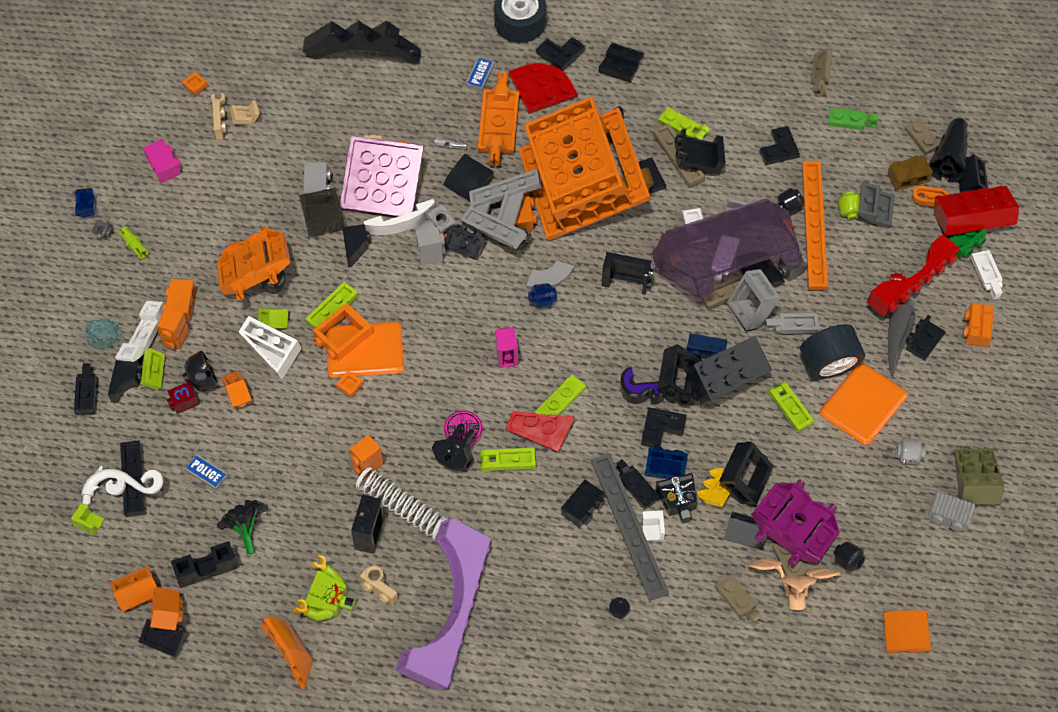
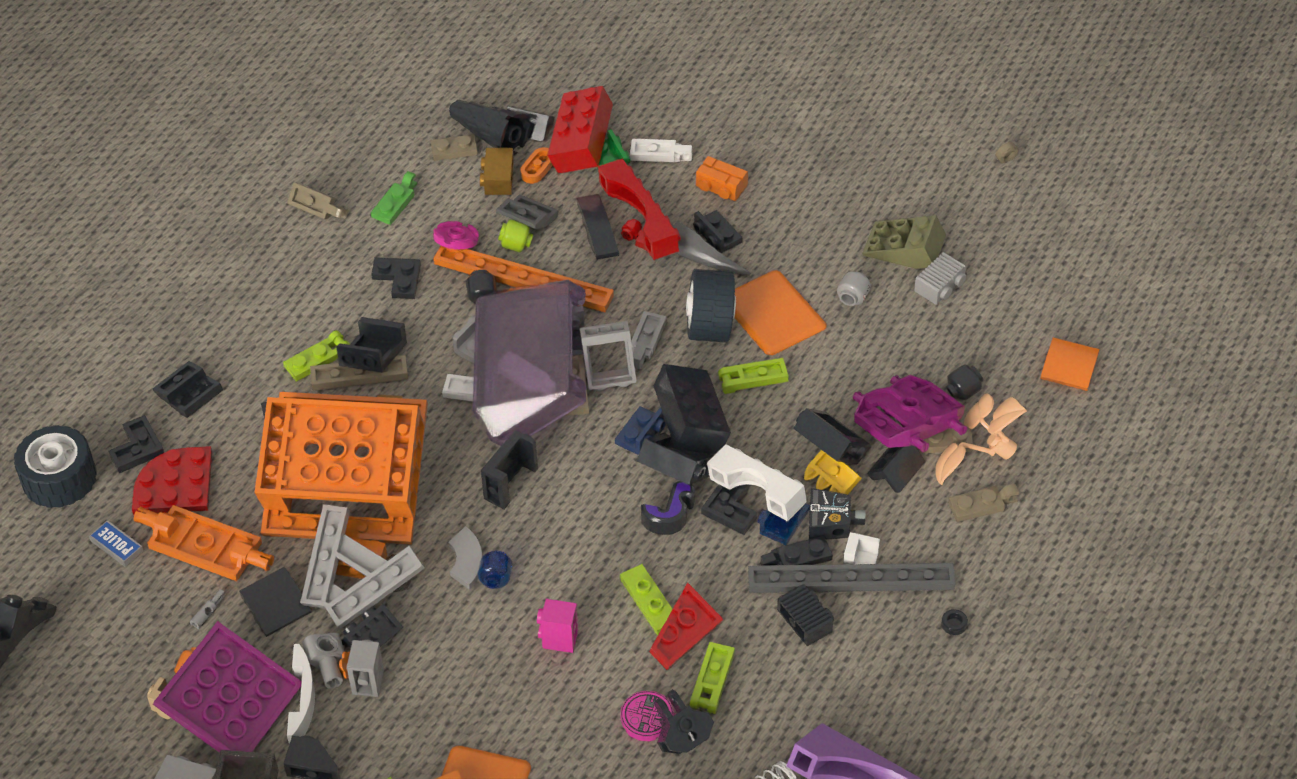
camera: 70 degrees left, 10 degrees down
(670, 450) = (734, 468): none -> white arch
(832, 168) = (455, 236): none -> dark pink tile
(886, 255) = (597, 226): none -> black slope

